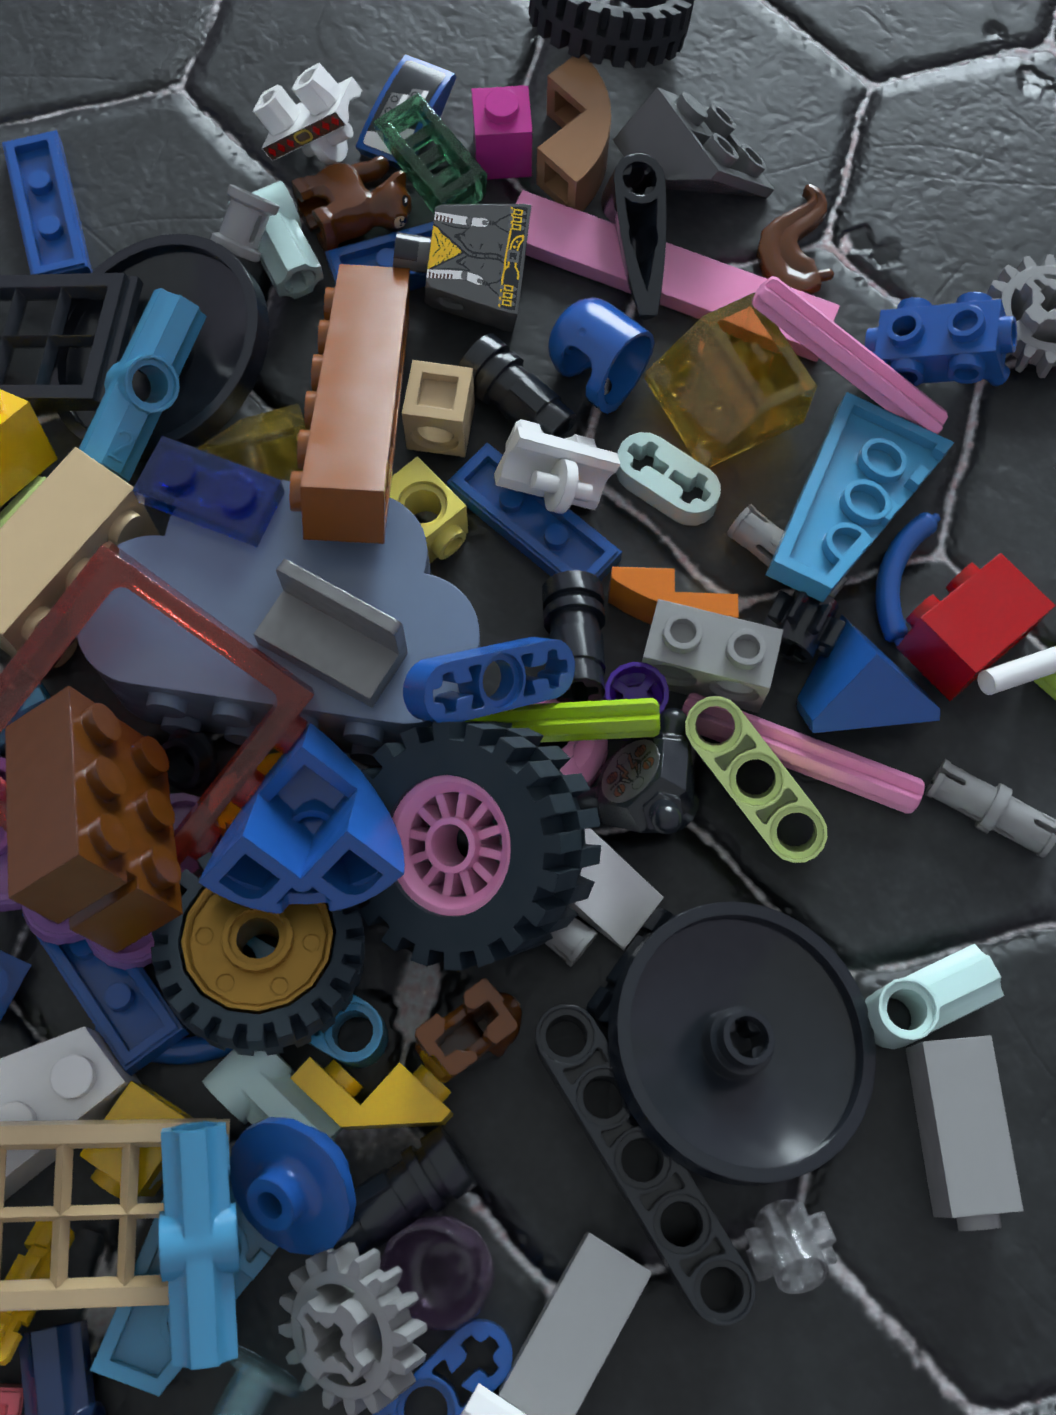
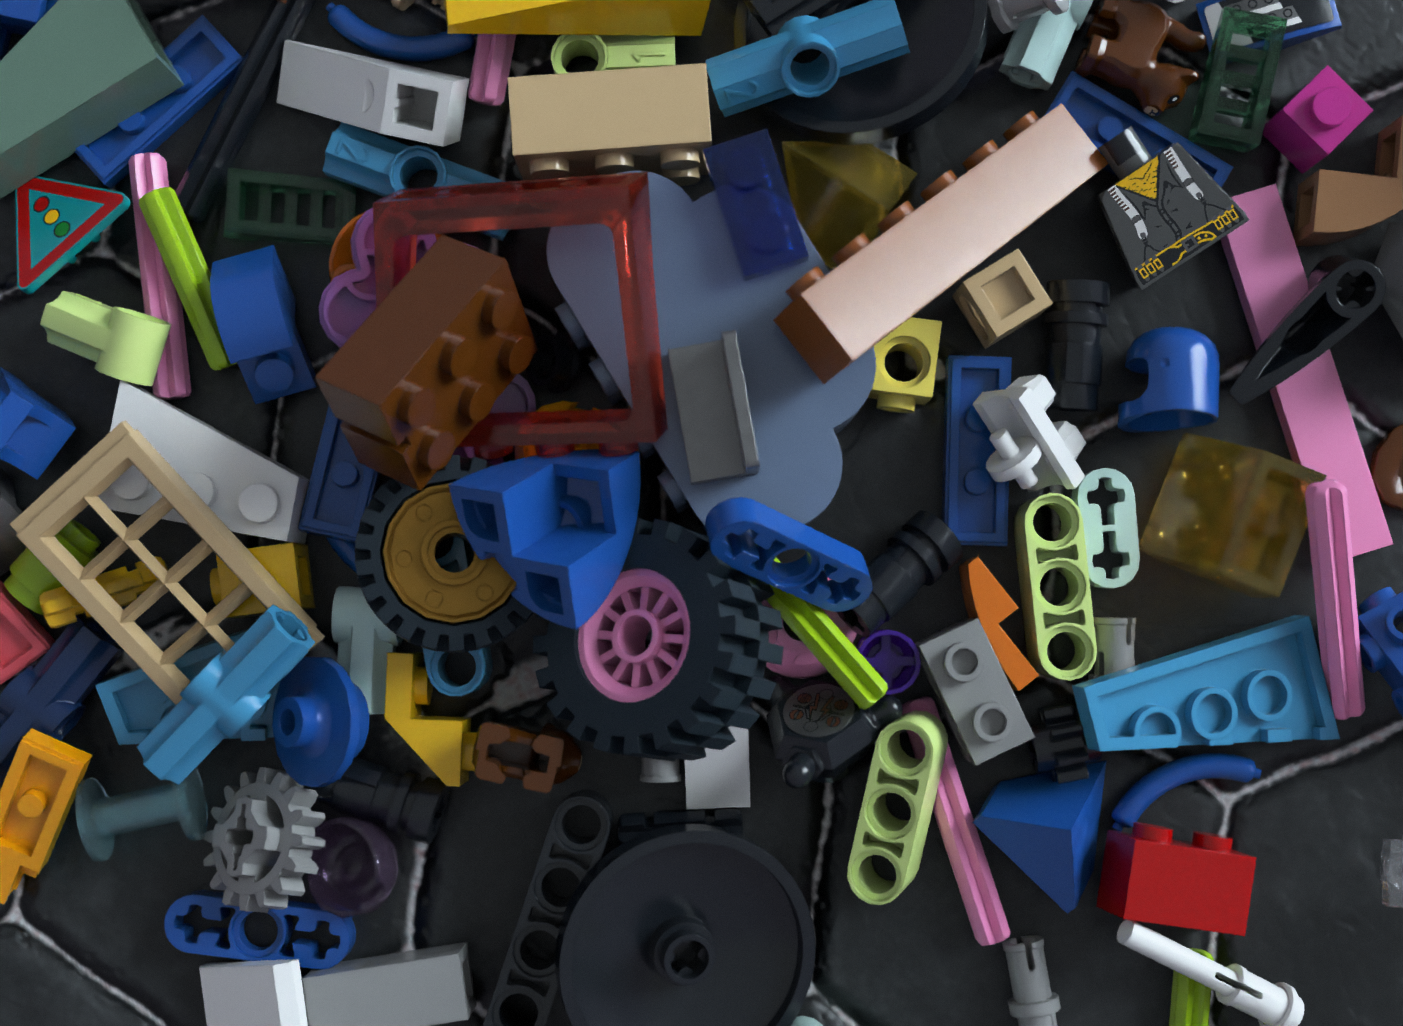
camera: 55 degrees right, 15 degrees up
(668, 515) = (1075, 612): none -> yellowish green beam

